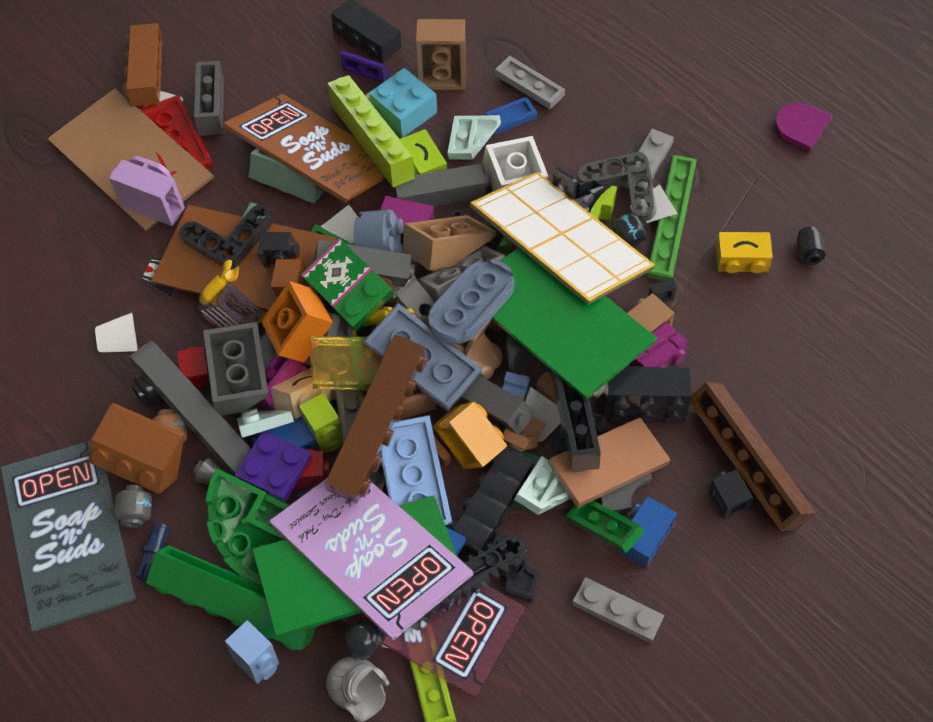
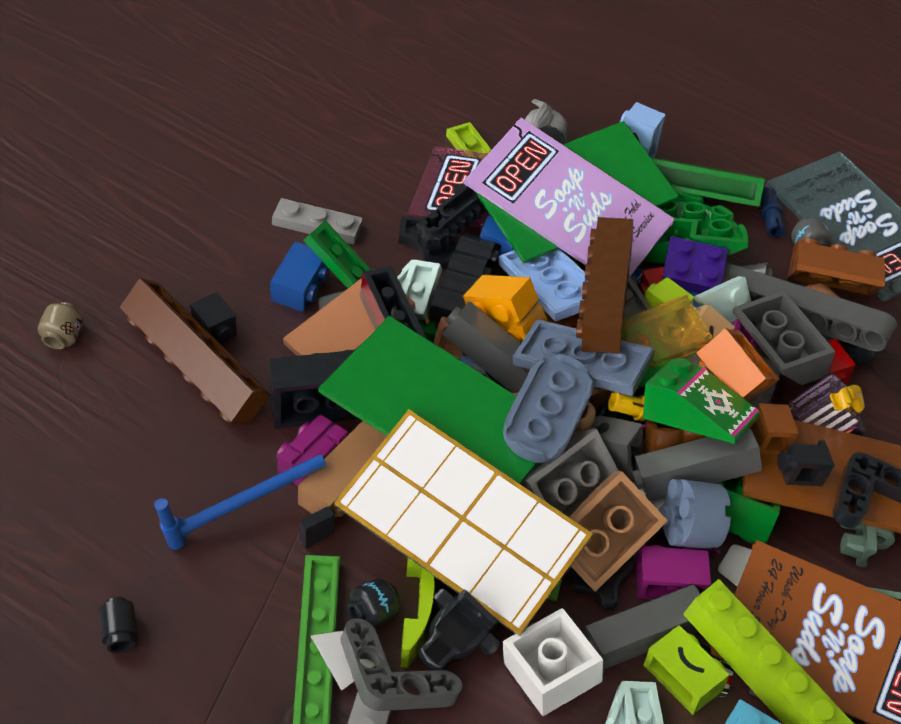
camera: 160 degrees right, 10 degrees down
(743, 252) = (212, 598): yellow brick -> none
(766, 306) = (177, 530): none -> blue bar
(868, 506) = (60, 325): none -> dark tan head

